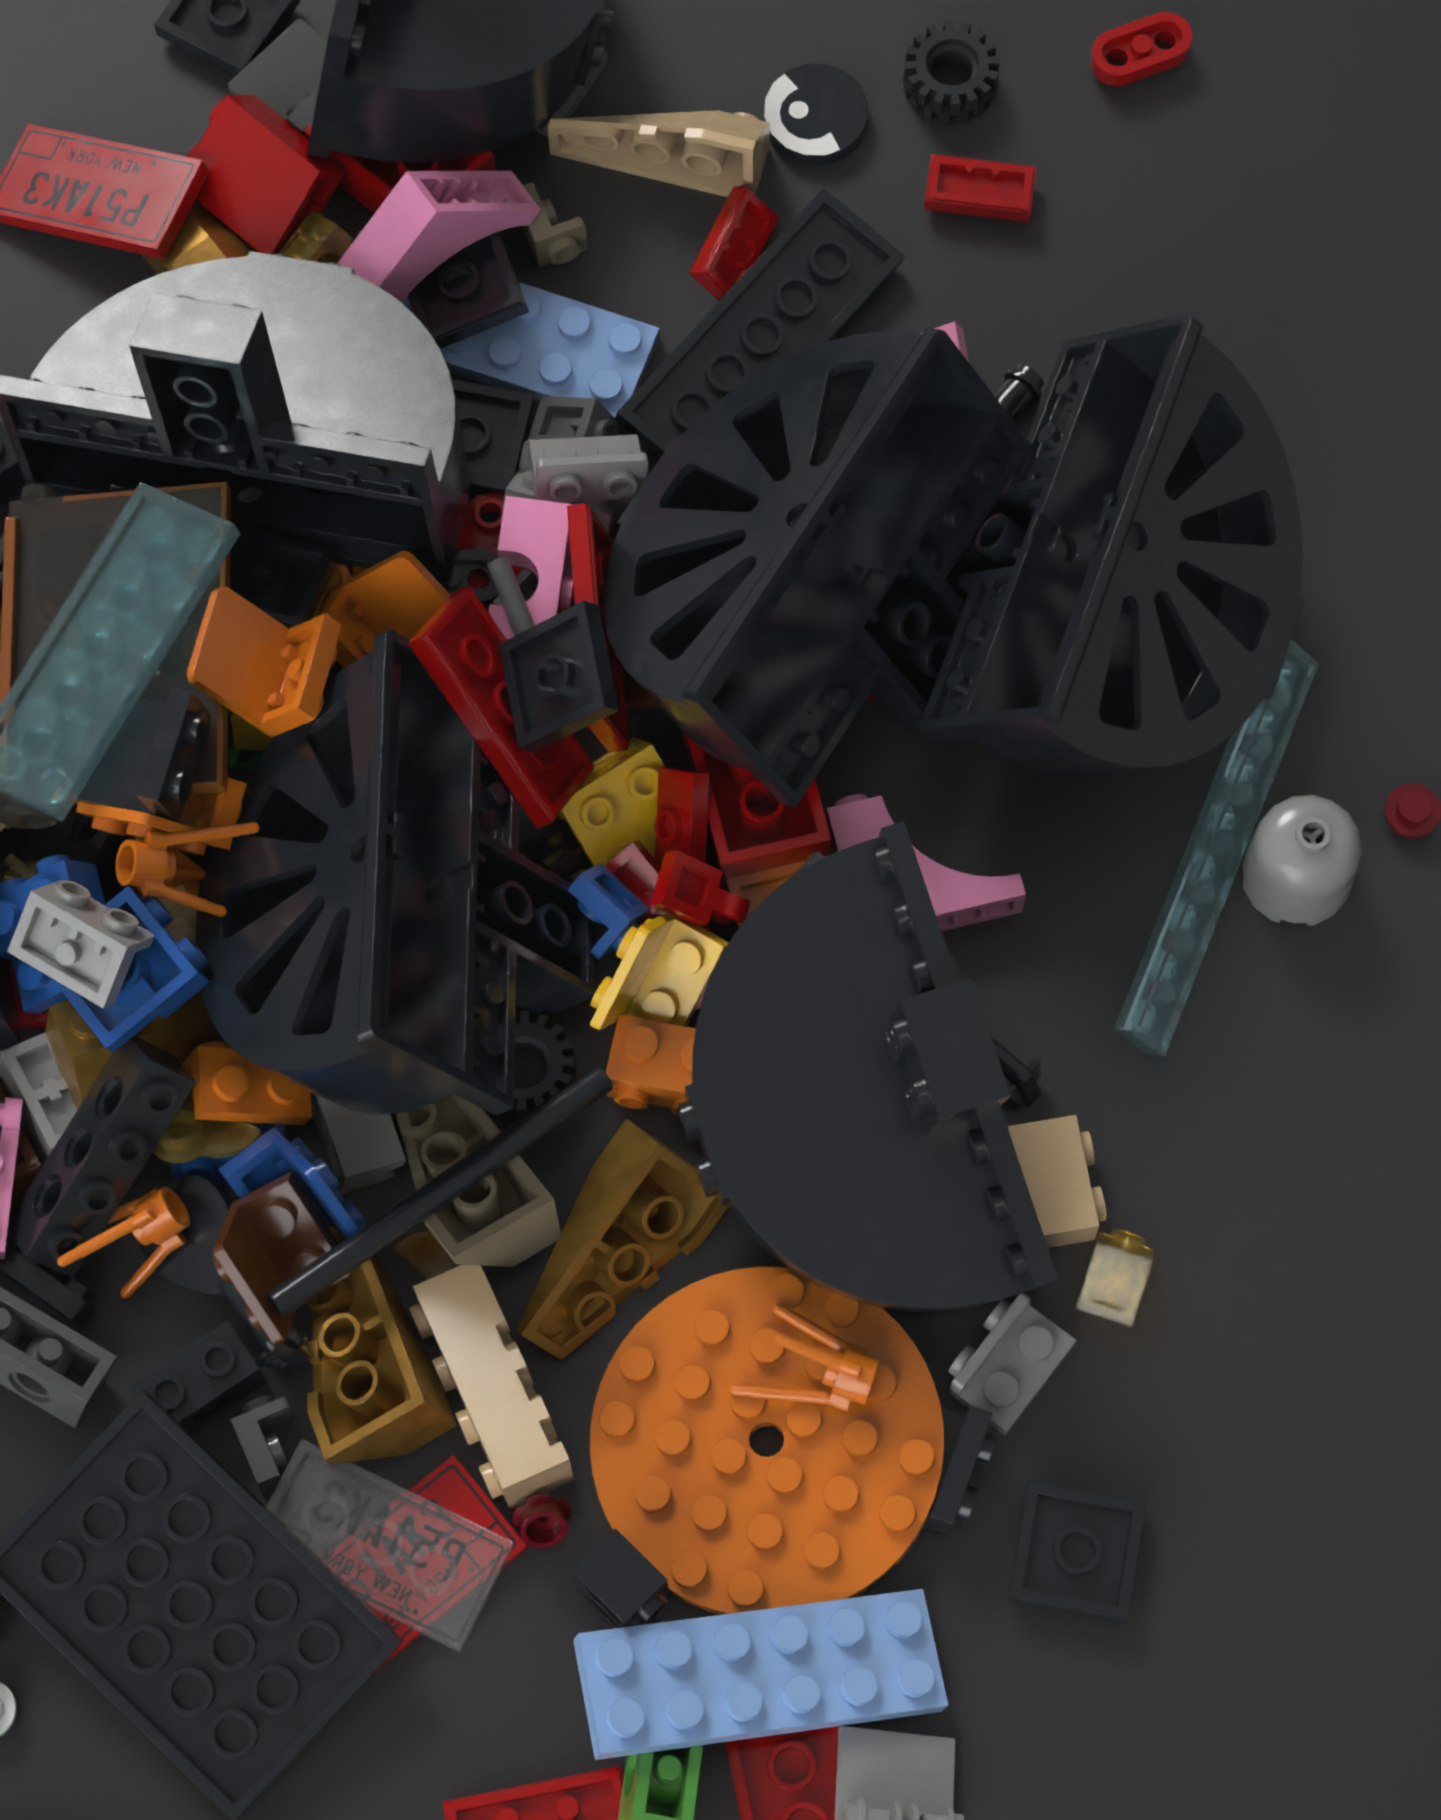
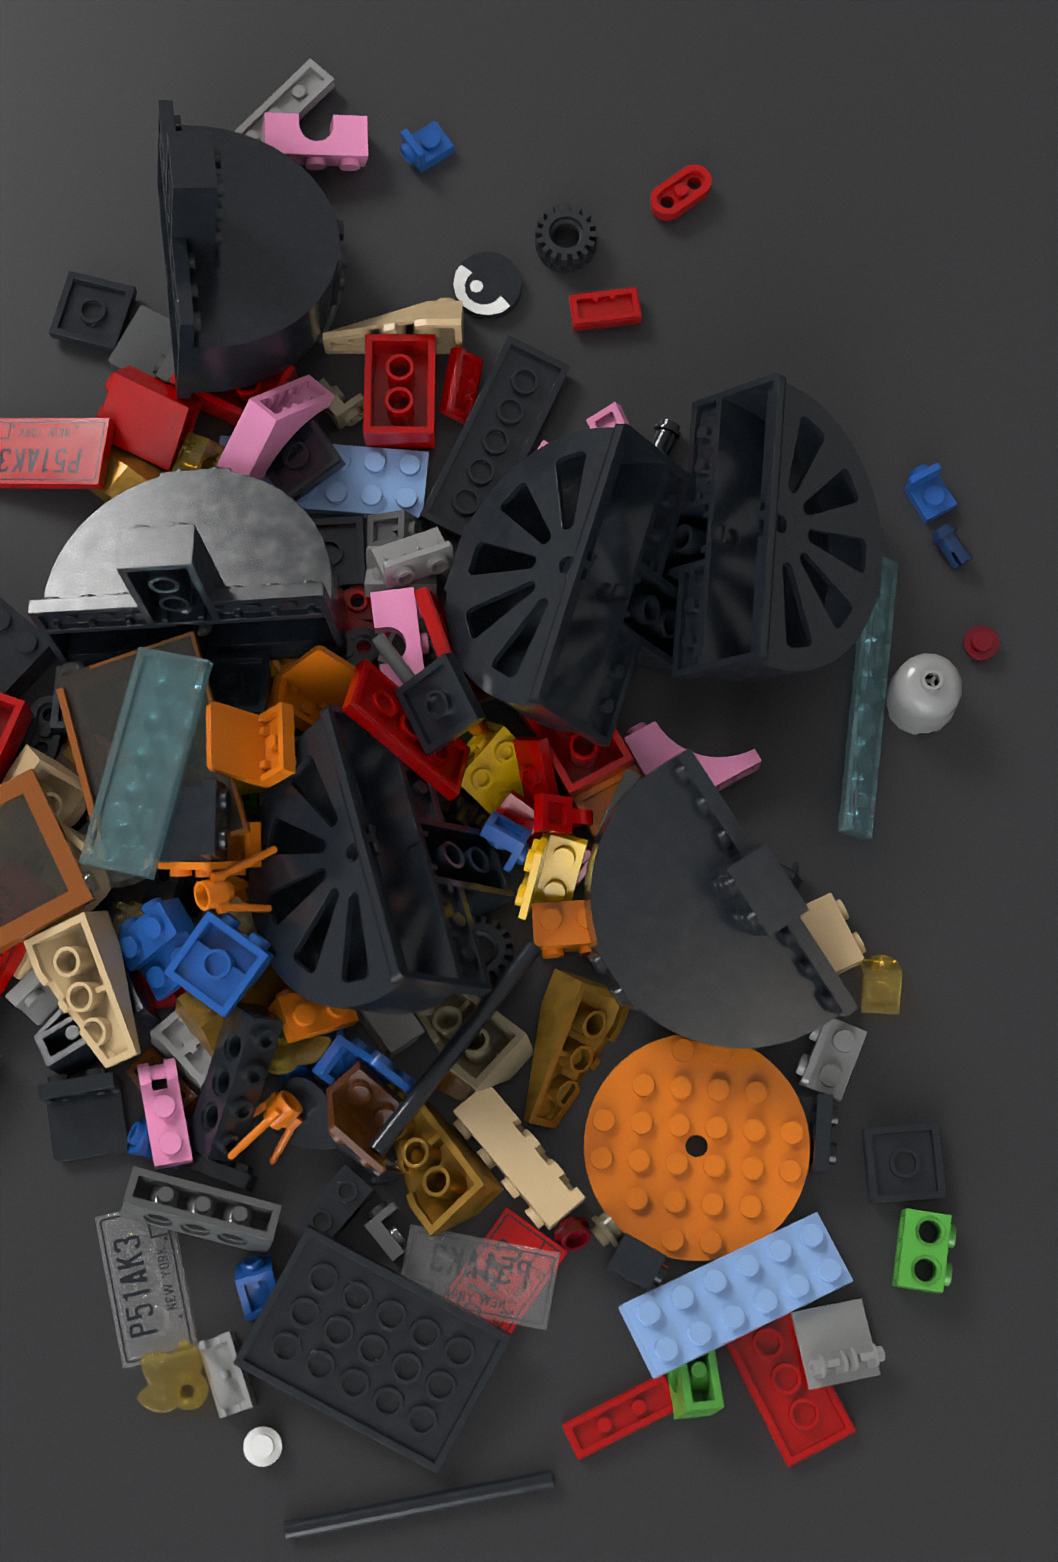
camera: 15 degrees left, 5 degrees up
(41, 1460) = (254, 1283): none -> blue bracket
(78, 940) = (187, 955): light grey bracket -> none
(591, 1525) = (606, 1230): none -> dark tan plate
(640, 229) = (400, 391): none -> red brick
(847, 1369) = (737, 1093): orange plant -> none
(1056, 1685) = (912, 1248): none -> bright green brick
(1394, 570) = (929, 492): none -> blue bracket
(1406, 656) = (951, 546): none -> dark blue pin

